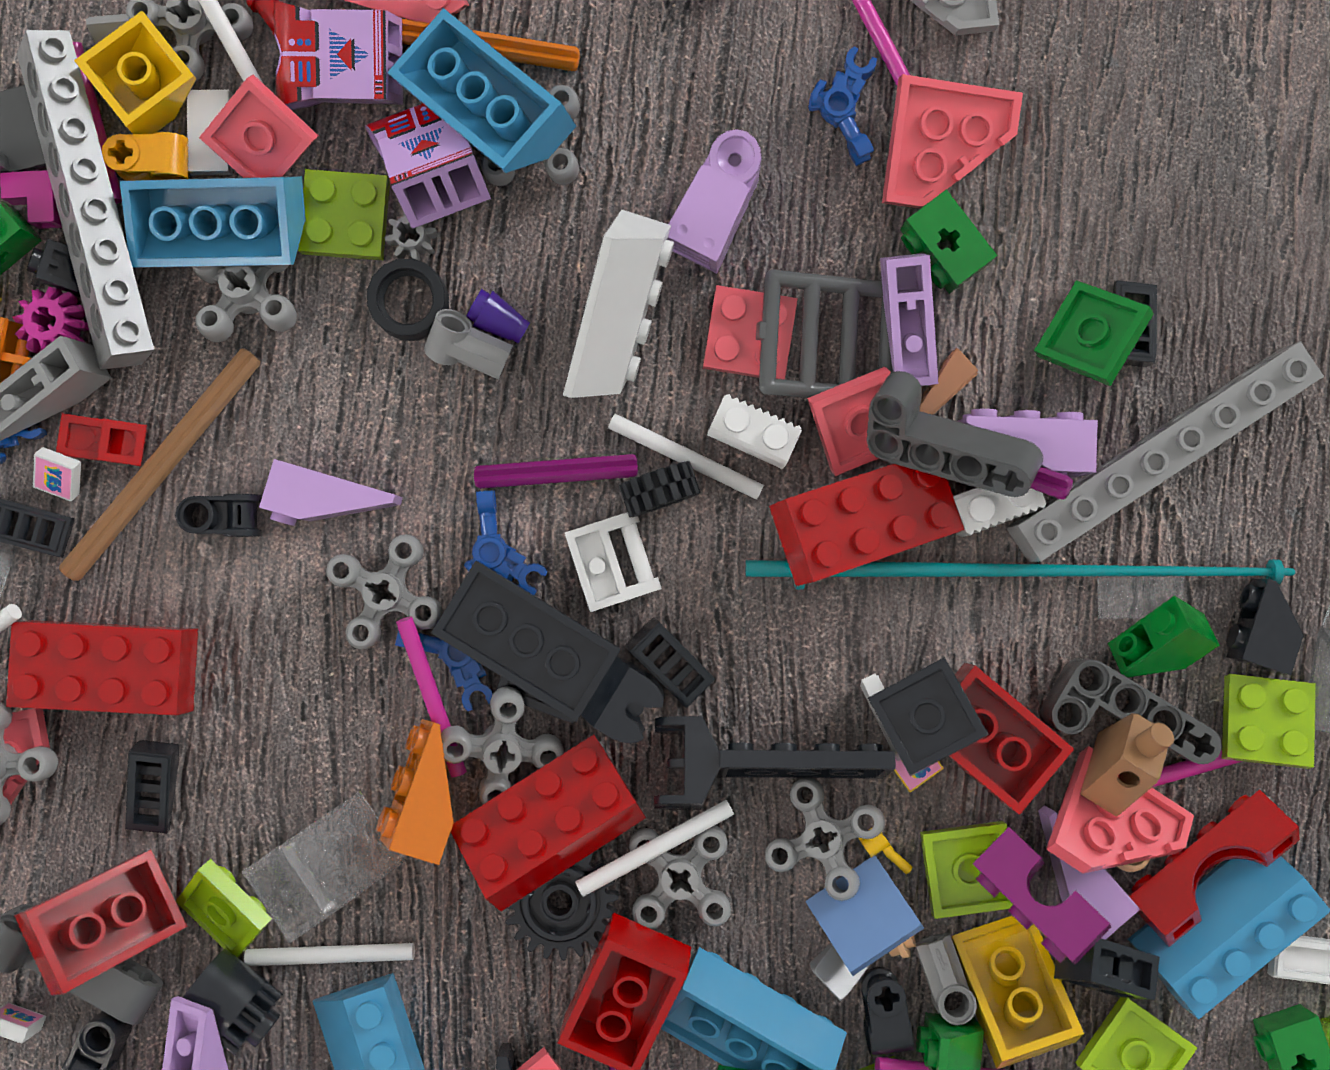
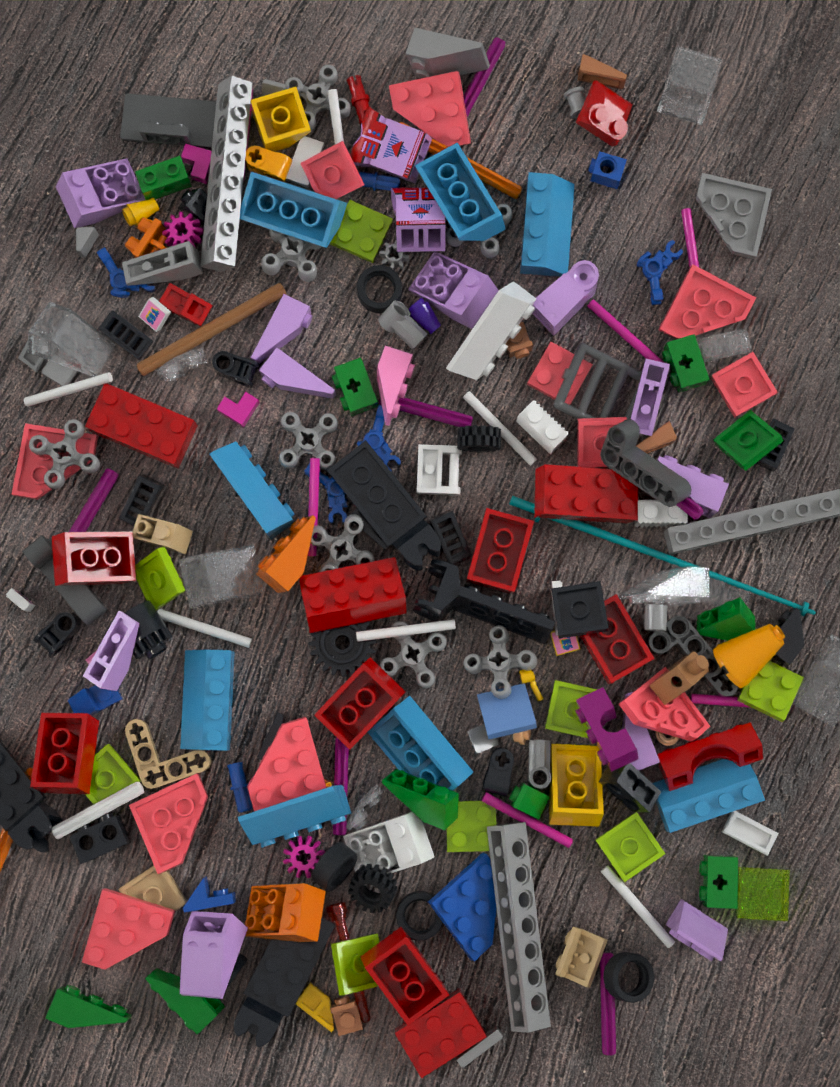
camera: 20 degrees right, 5 degrees down
(74, 823) = (94, 501): none -> magenta axle
(125, 548) = (175, 367): none -> clear slope
(203, 832) = (162, 533): none -> tan slope
(259, 582) = (240, 412): none -> dark pink piece
(275, 415) = (284, 326): none -> lavender slope
(320, 706) = (253, 489): none -> dark azure slope
(341, 122) = (379, 181): none -> blue axle
(420, 452) = (350, 373): none -> green brick
(479, 434) = (391, 378): none -> bright pink slope
(529, 255) = (454, 289): none -> lavender slope
(641, 95) = (547, 225): none -> dark azure slope
(670, 309) = (520, 344): none -> nougat bracket
(760, 662) = (500, 551): none -> red brick
(827, 226) = (622, 331): none -> dark pink bar
(999, 189) = (724, 345): none -> clear slope
(1049, 681) = (654, 617): none -> light grey piece
(1052, 243) = (743, 384): none -> coral plate
(1058, 622) = (671, 587): none -> clear slope
(1223, 683) = (749, 653): none -> light orange cone

